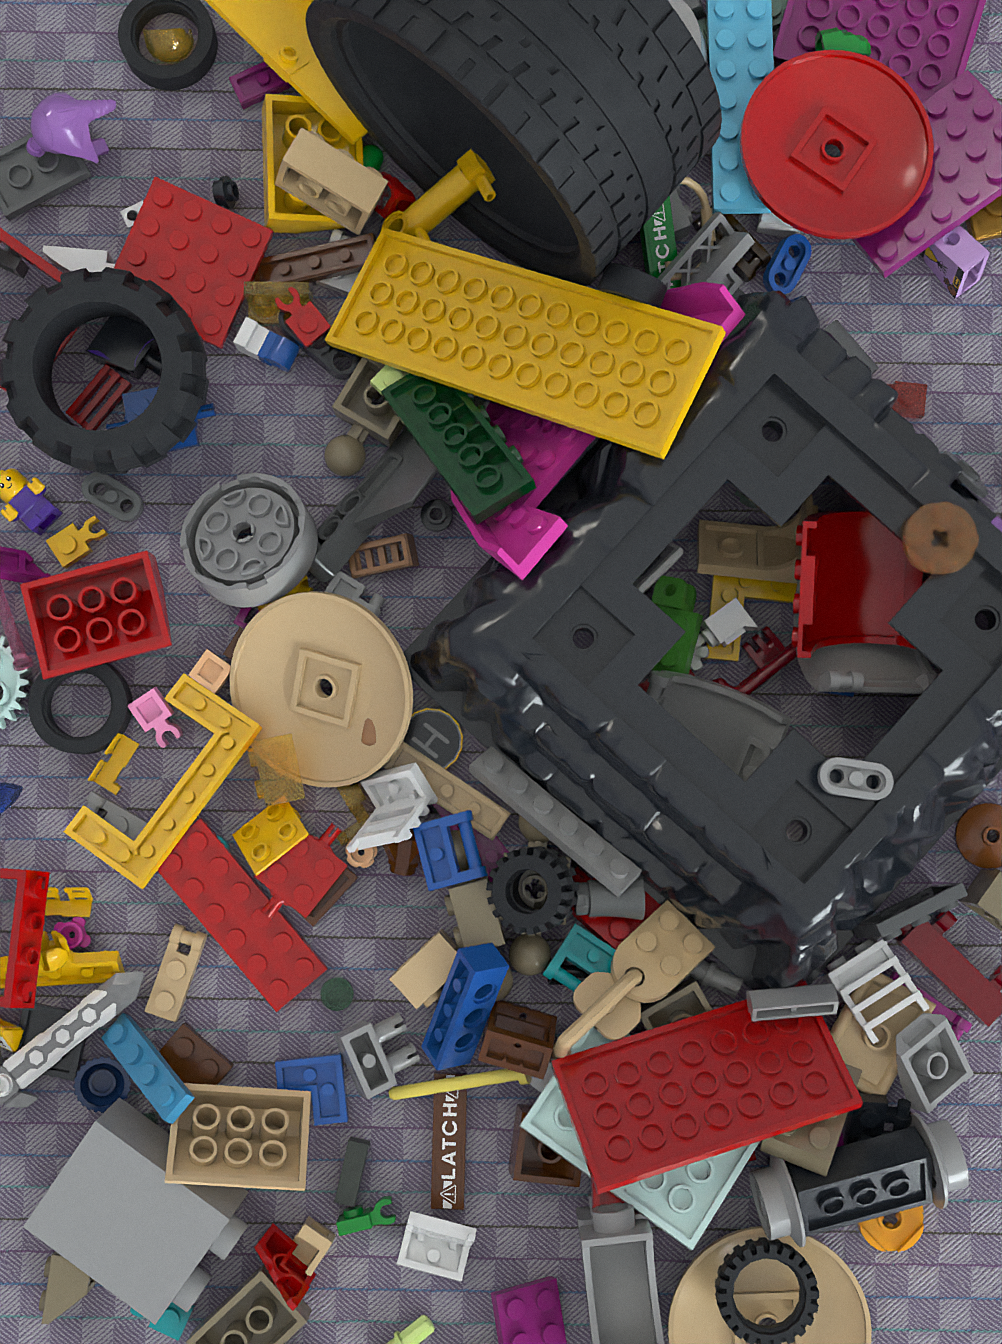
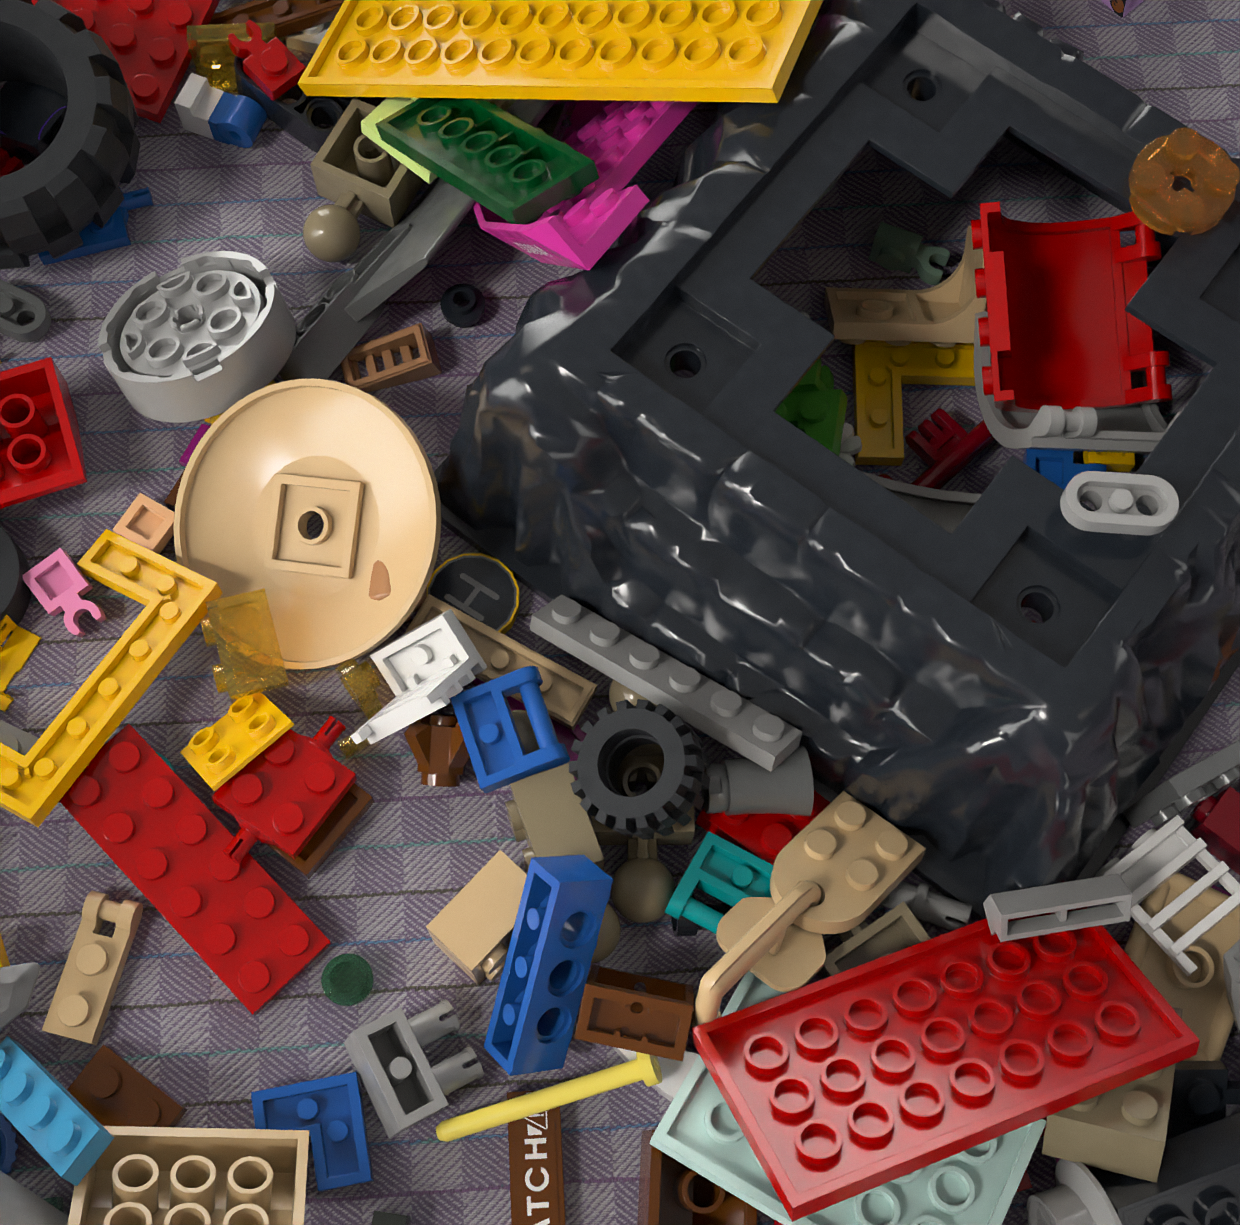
camera: 10 degrees left, 15 degrees down
(365, 860) = (367, 754): light nougat plate -> none
(727, 624) = (884, 403): white window -> none

